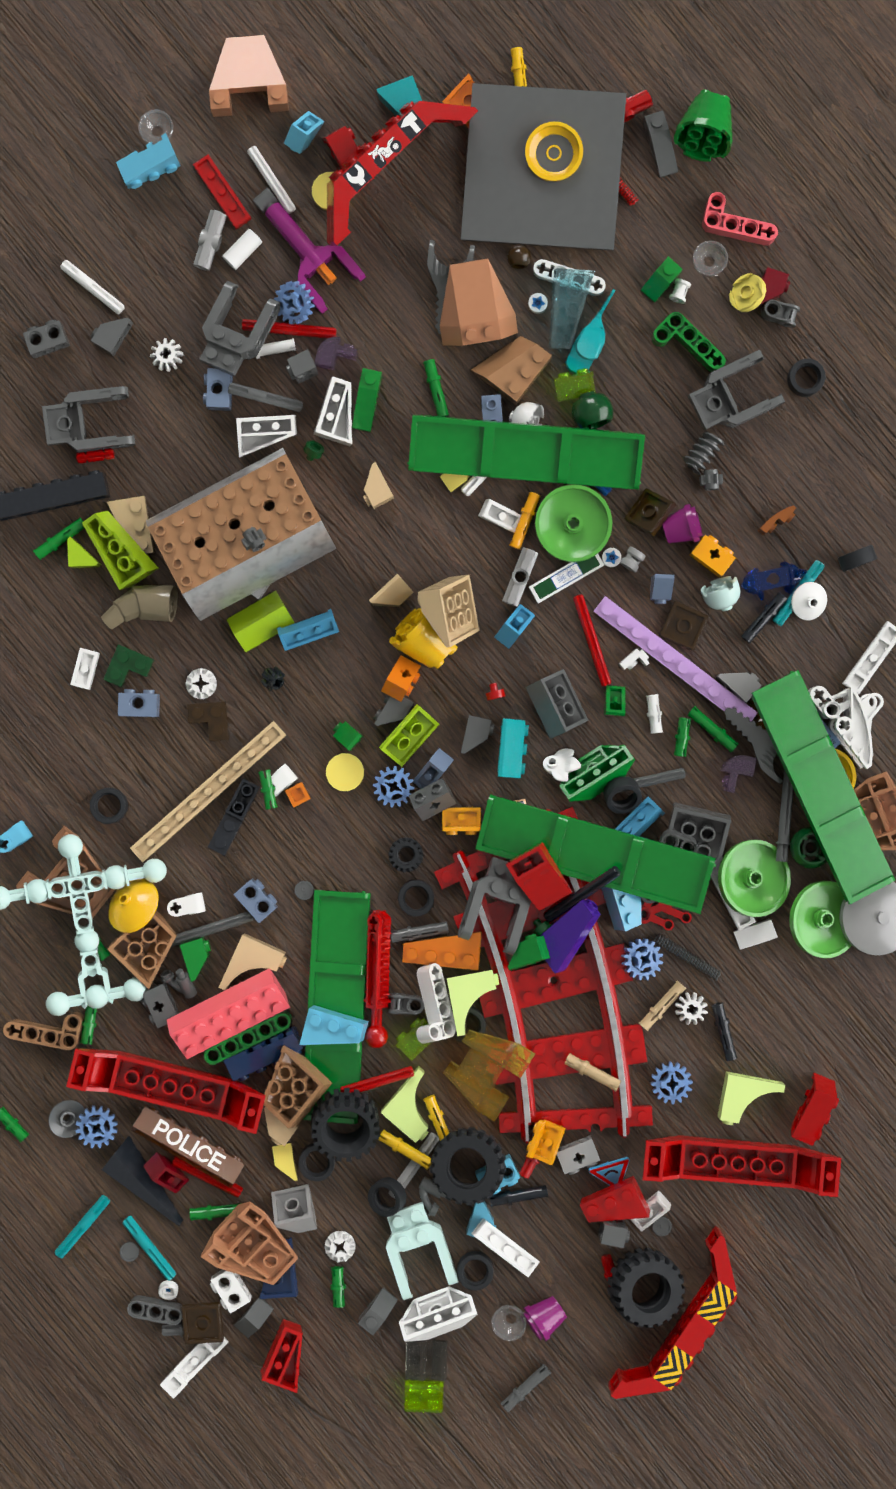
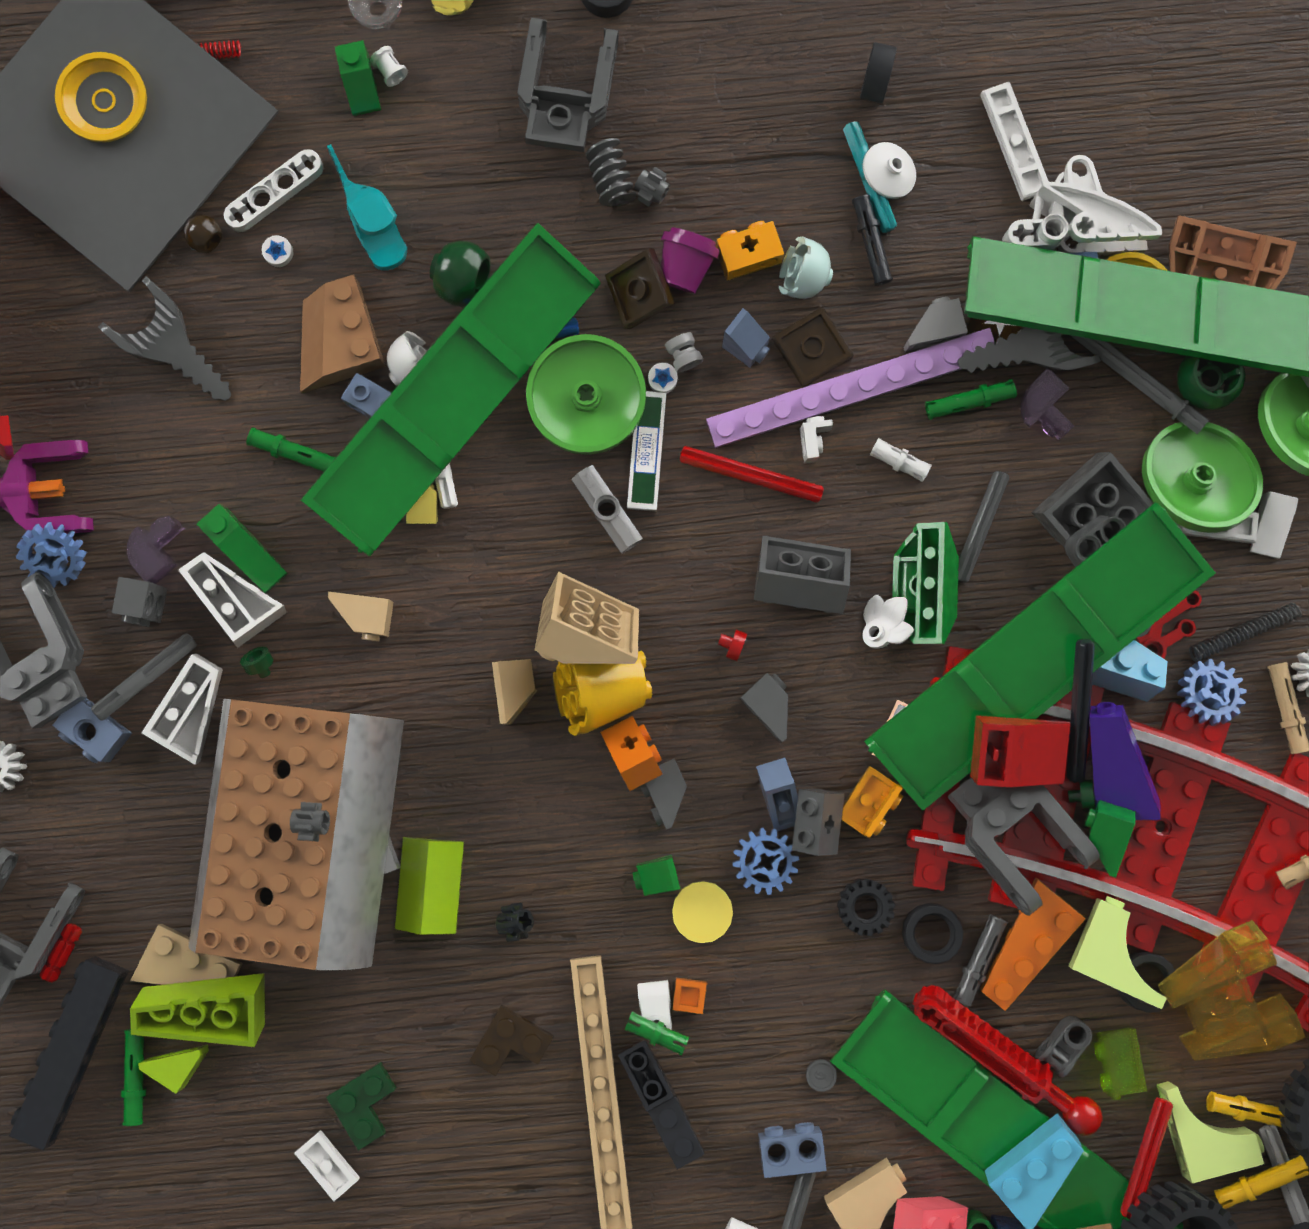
camera: 55 degrees left, 5 degrees down
(143, 602) = (296, 1023): dark tan piece -> none
(150, 703) = (418, 1144): sand blue brick -> none
(208, 689) = (469, 1019): white gear -> none
(277, 347) = (93, 620): white pin -> none
(294, 329) = (87, 578): red axle -> none
(308, 630) = (484, 831): dark azure container -> none
(409, 735) = (712, 794): lime slope -> none
(436, 1005) = (1097, 1006): white beam -> none
(475, 306) = (221, 328): nougat wedge -> none
(499, 515) = (510, 481): white slope -> none
(512, 748) = (822, 672): teal slope -> none
(514, 626) = (665, 560): dark azure slope -> none
(528, 512) = (532, 444): light orange pin -> none
(568, 301) = (301, 209): clear light blue wedge -> none
(574, 385) = (411, 276): clear neon green bracket -> none
(614, 701) = (850, 498): green slope -> none
(617, 785) = (964, 570): black tyre -> none
(641, 818) = (1025, 569): dark azure container -> none
(682, 737) = (954, 444): green pin -> none
(691, 345) = (465, 99): green beam -> none
(756, 581) = (820, 219): clear blue piece -> none
(781, 517) = (760, 135): dark orange slope -> none

